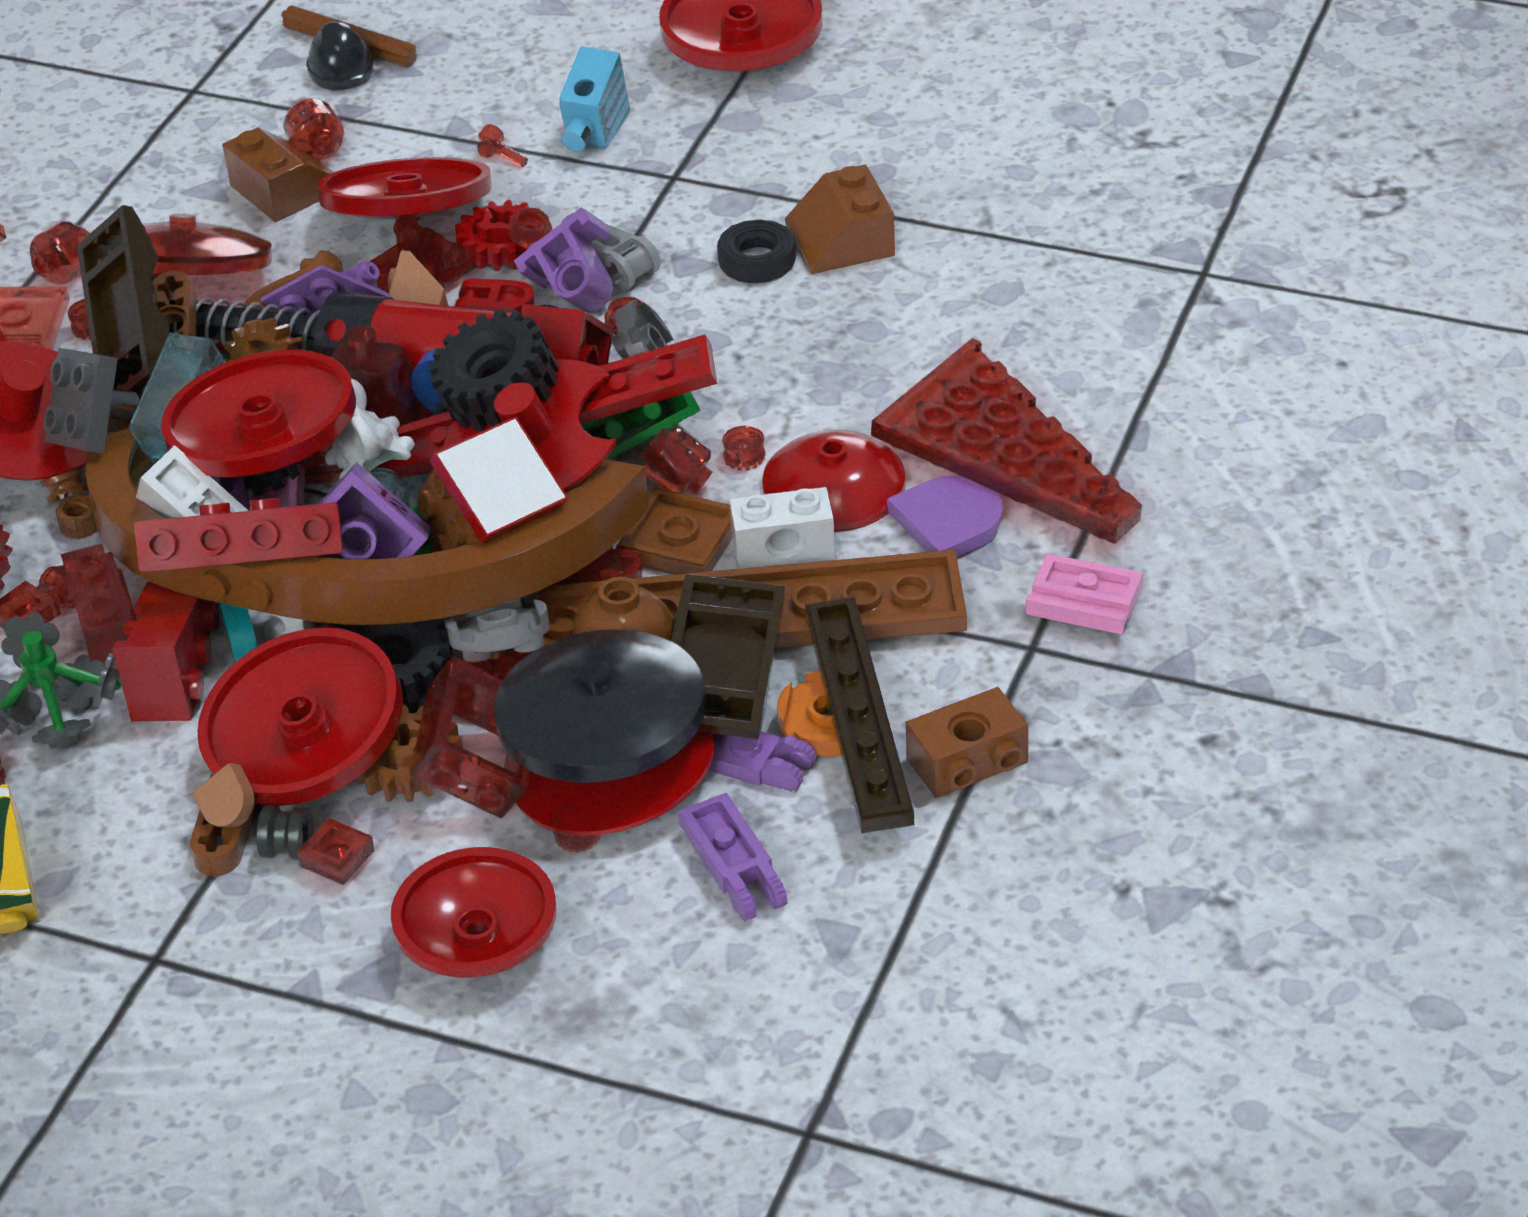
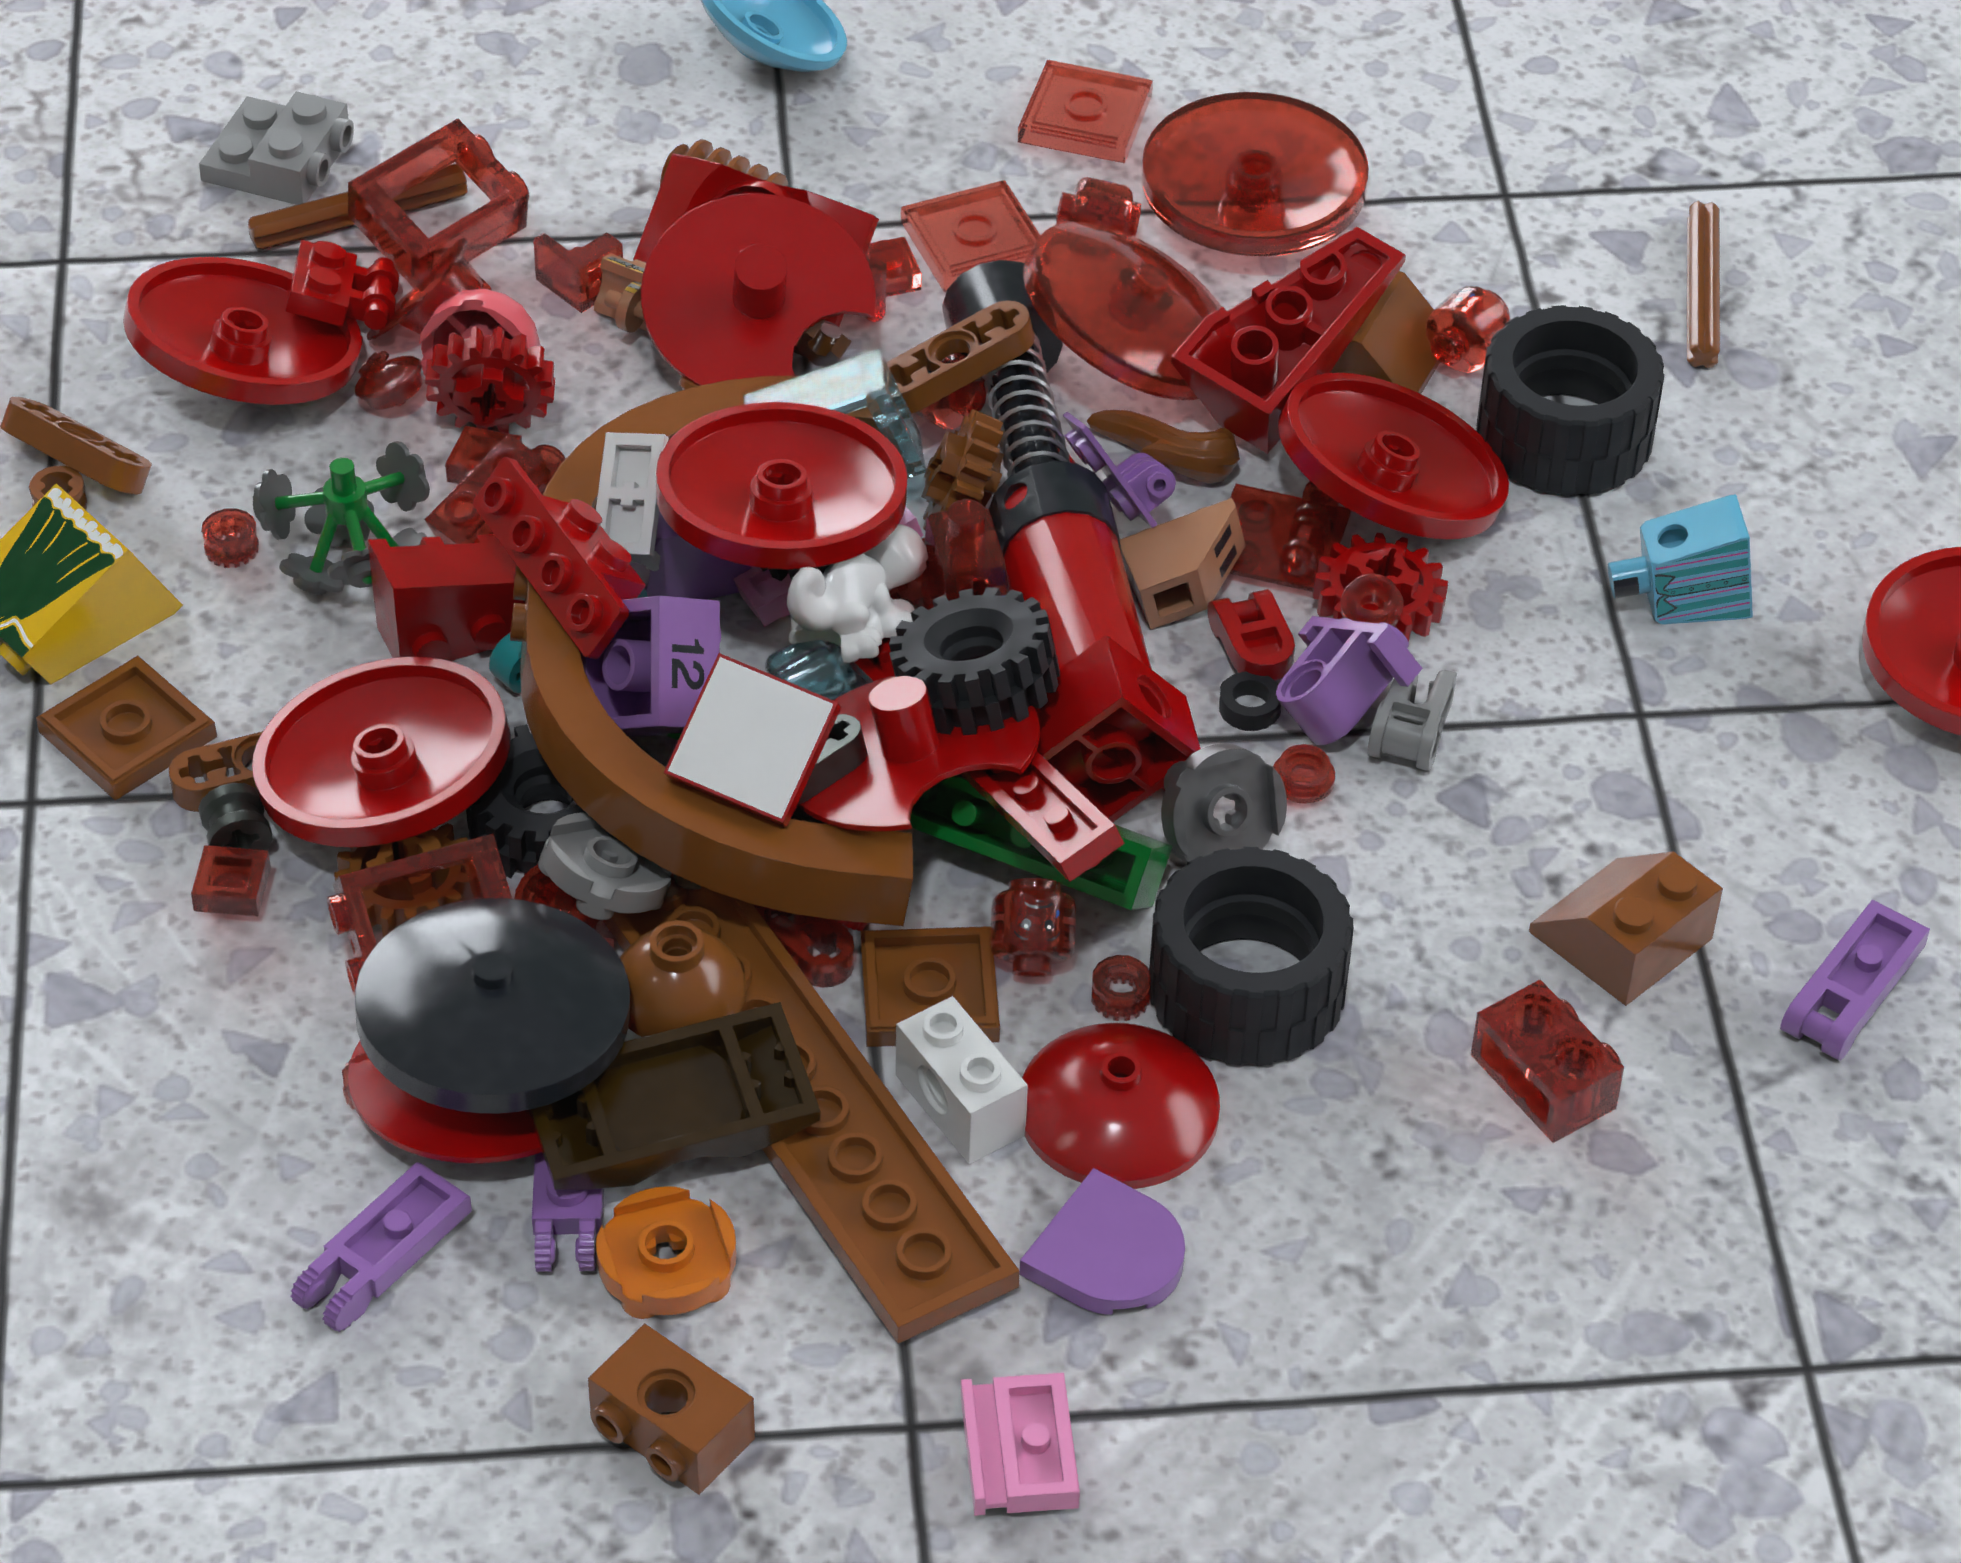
camera: 60 degrees right, 5 degrees up
(84, 400) = (753, 336): dark grey plate -> none
(93, 167) = (1254, 174): none -> clear red dish
(121, 298) = (935, 287): dark brown slope -> none
(126, 880) = (126, 727): none -> dark orange tile
(226, 797) = (236, 746): nougat tile -> none
(280, 185) = (1286, 332): none -> red wedge
(339, 58) = (1643, 290): black hat -> none
(418, 101) = (1580, 356): none -> black tyre
(473, 912) = (158, 1033): red dish -> none
(492, 143) = (1576, 503): clear red hand -> none
(756, 267) = (1516, 883): black tyre -> none
(778, 369) = (1254, 898): none -> black tyre
(859, 716) = (651, 1274): dark brown tile -> none
(930, 287) = (1547, 1060): none -> clear red brick
(946, 157) = (1855, 978): none -> medium lavender plate
(990, 431) = (1268, 1247): clear red wing -> none

